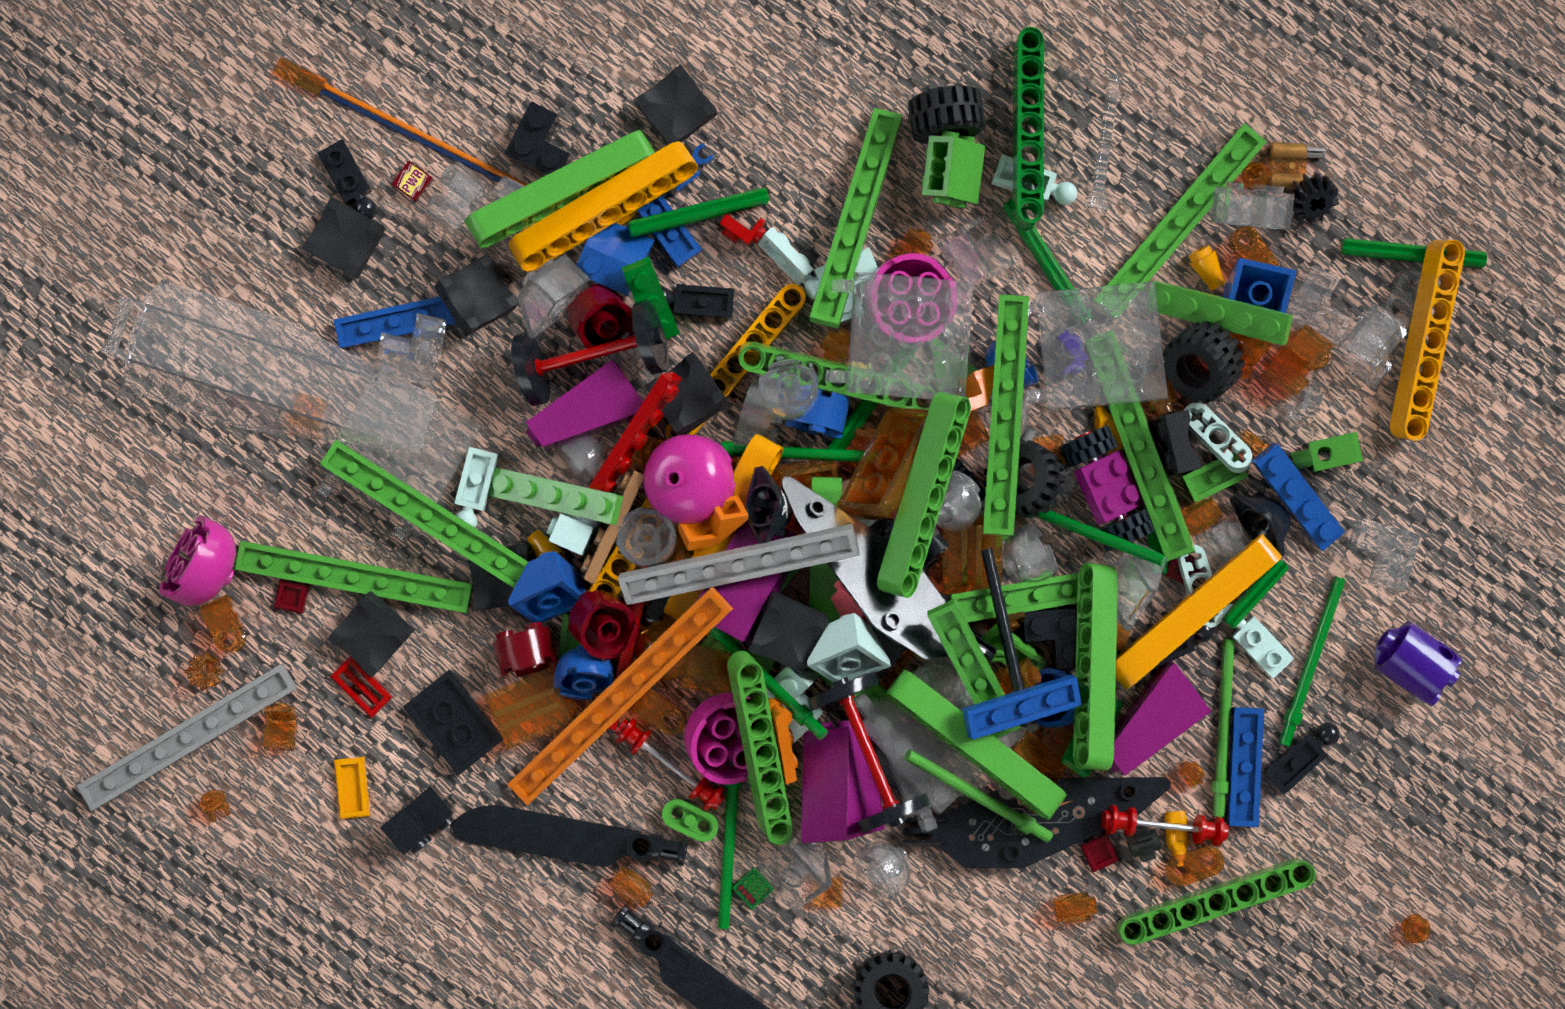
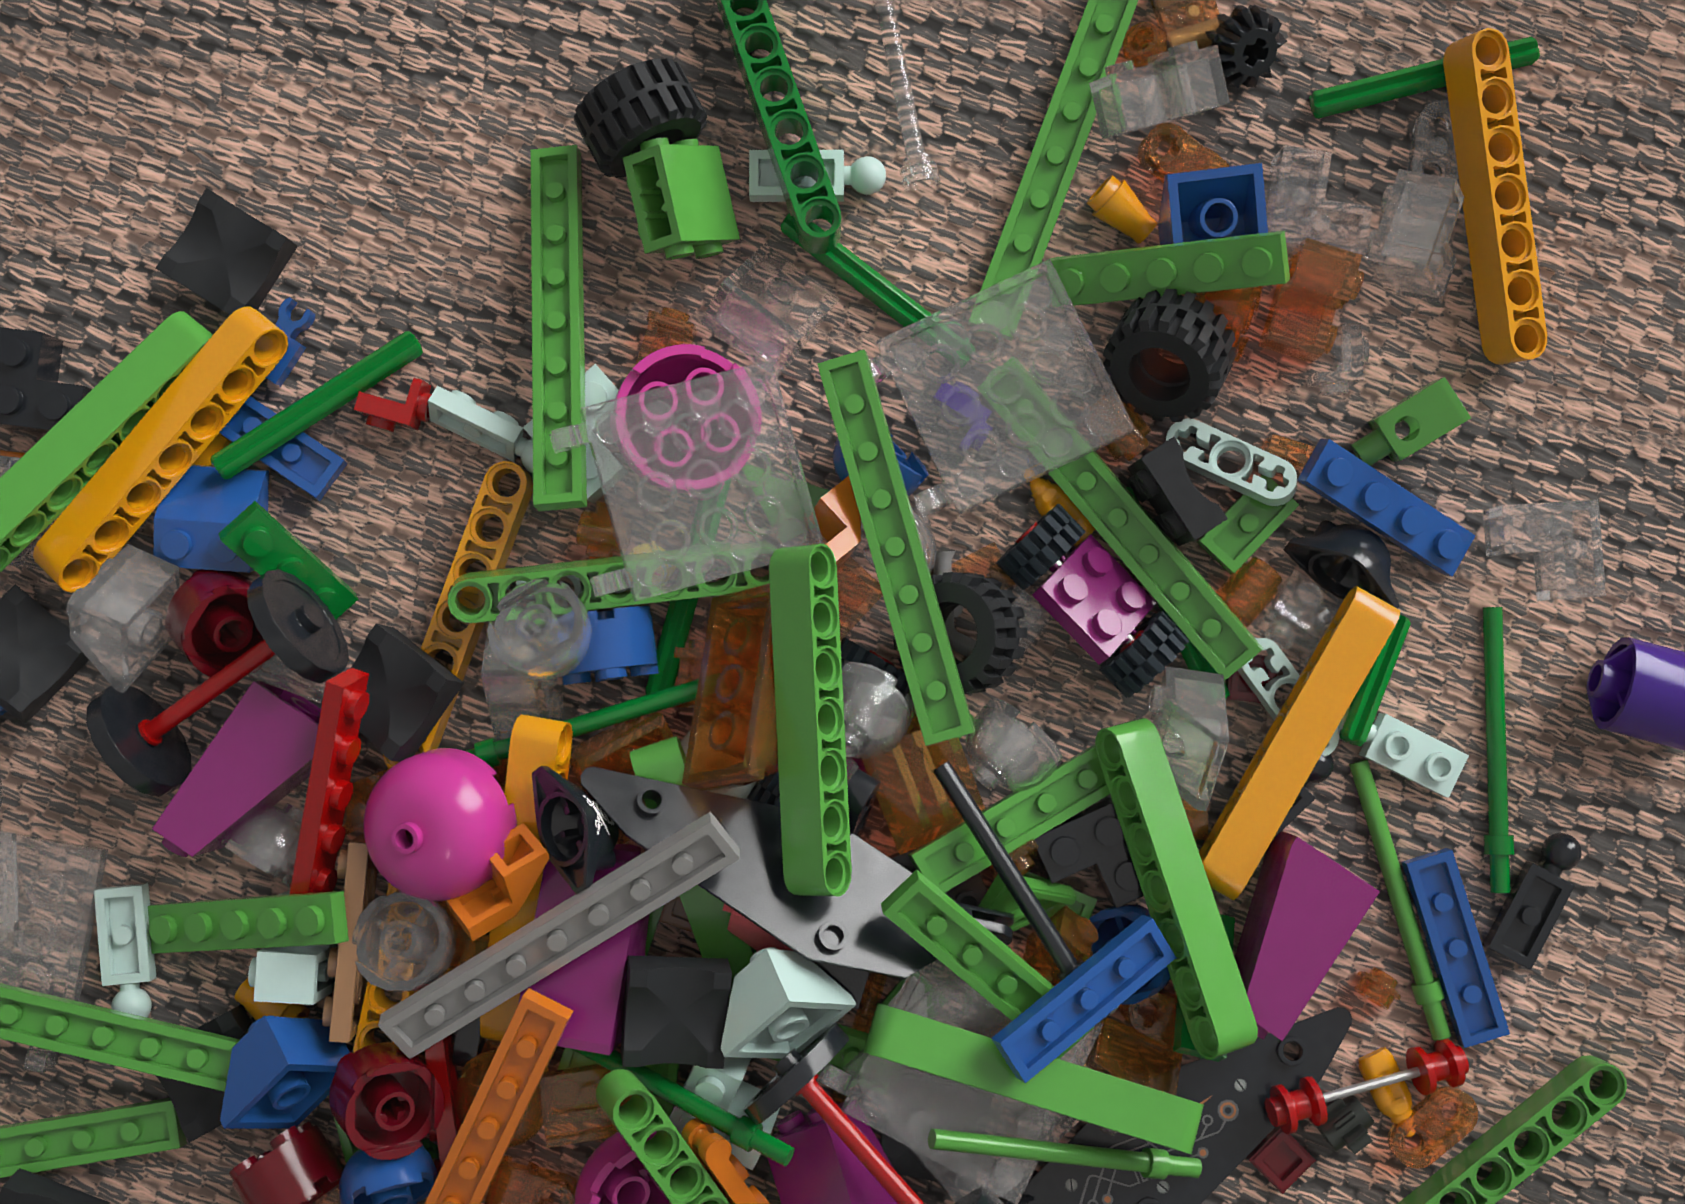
camera: 20 degrees left, 0 degrees up
(701, 301) = (371, 538): black plate -> none
(1103, 537) = (1117, 681): green bar -> none

